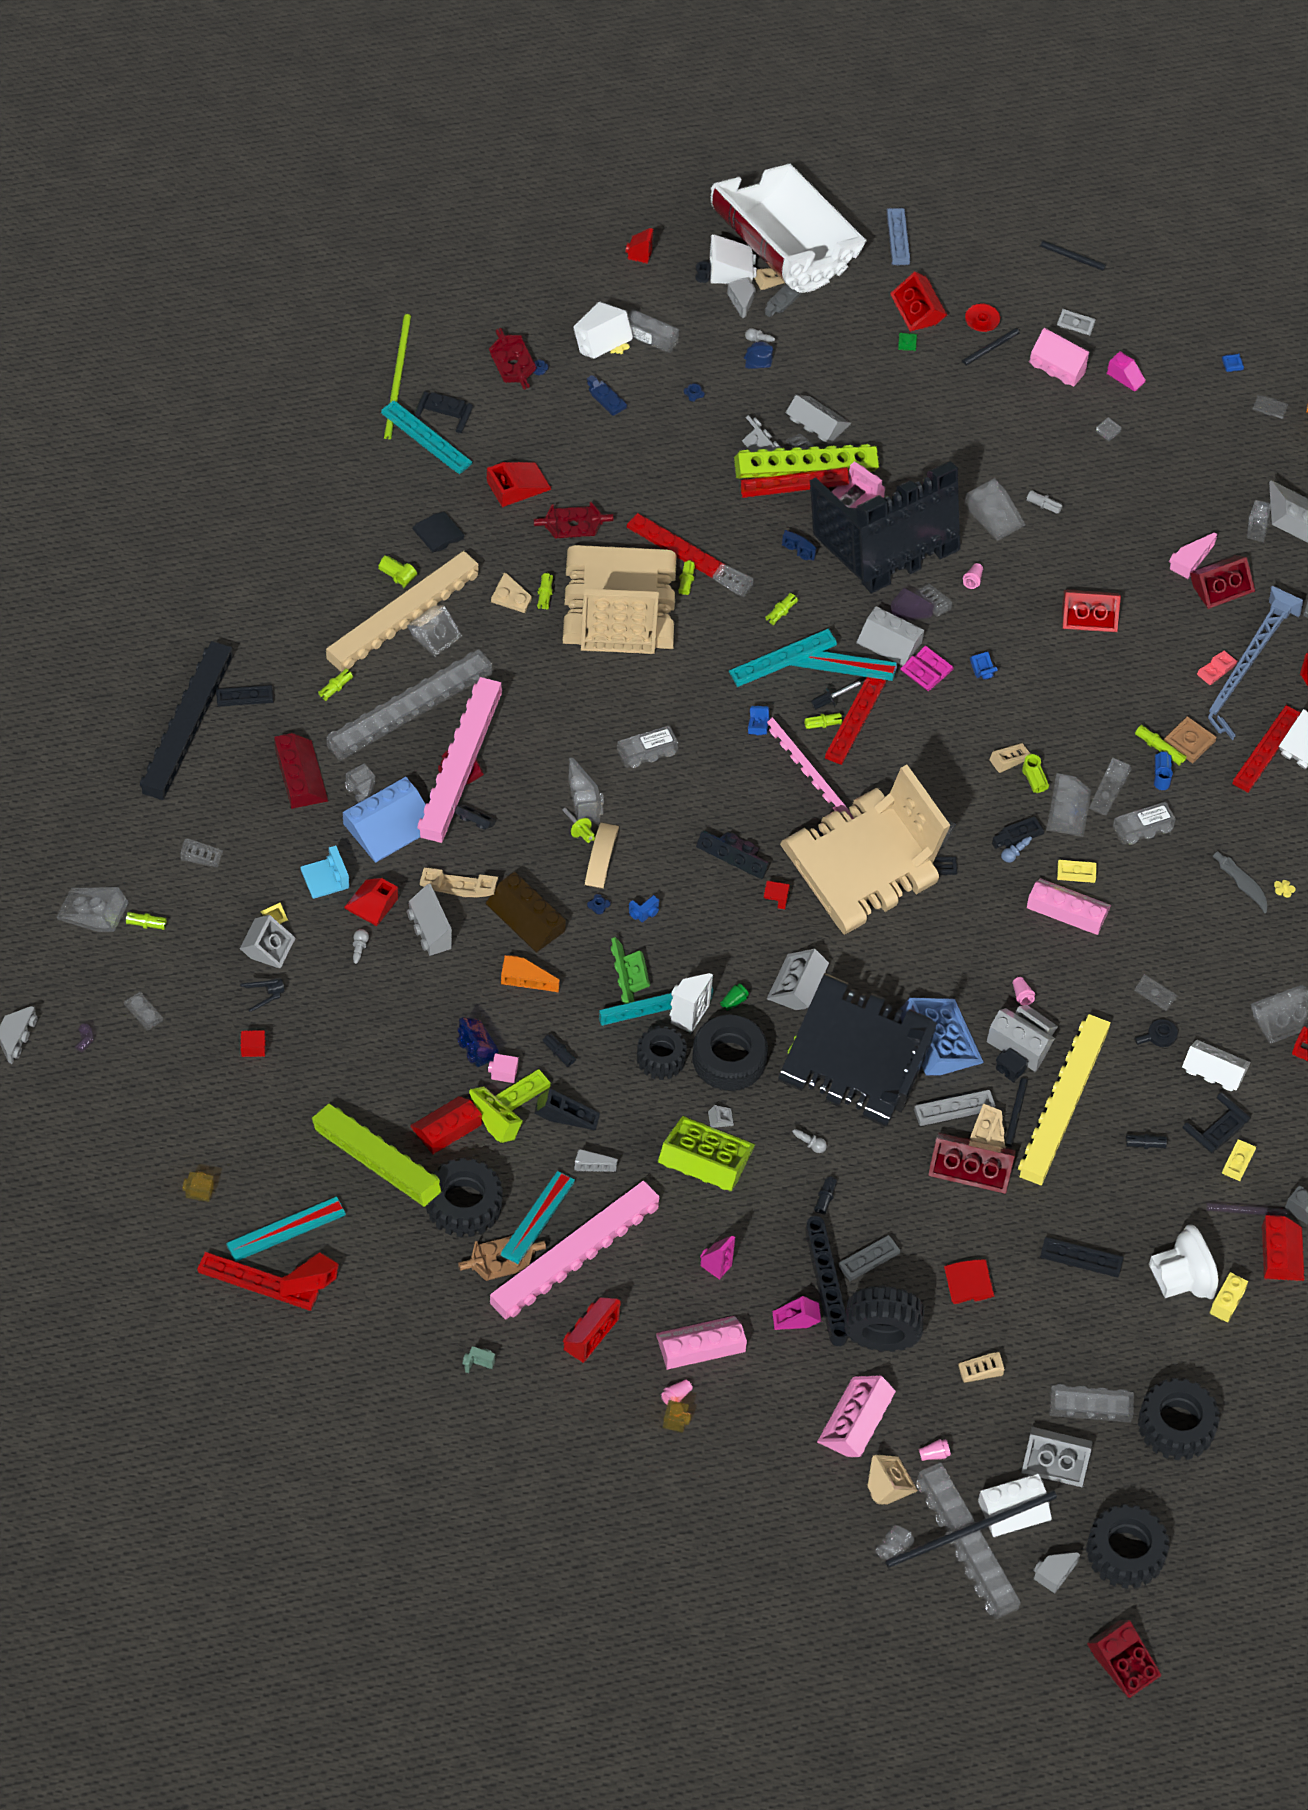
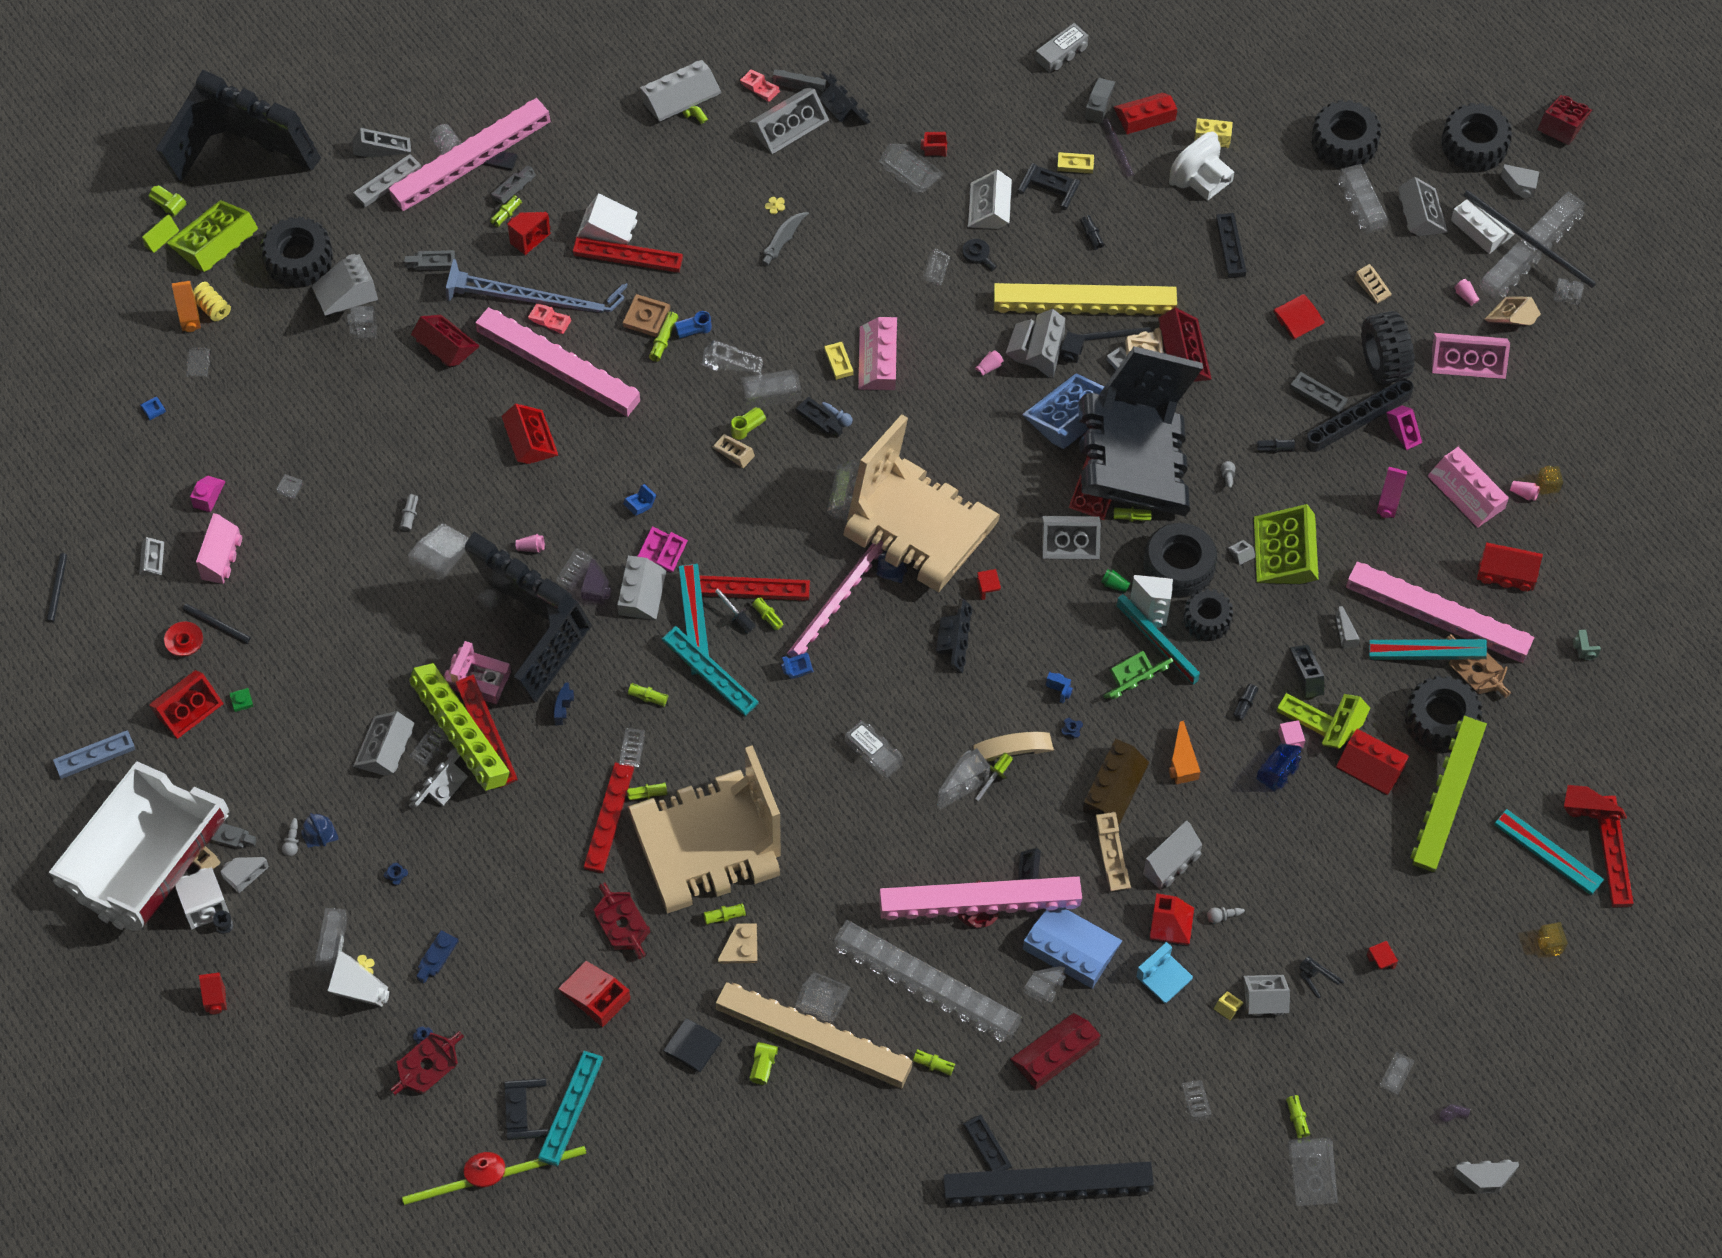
camera: 110 degrees left, 5 degrees up
(404, 369) = (487, 1175): none -> red dish
(1144, 823) = (761, 322): clear brick -> none
(1162, 655) = (558, 361): none -> bright pink brick
(1191, 555) = (428, 372): bright pink slope -> none

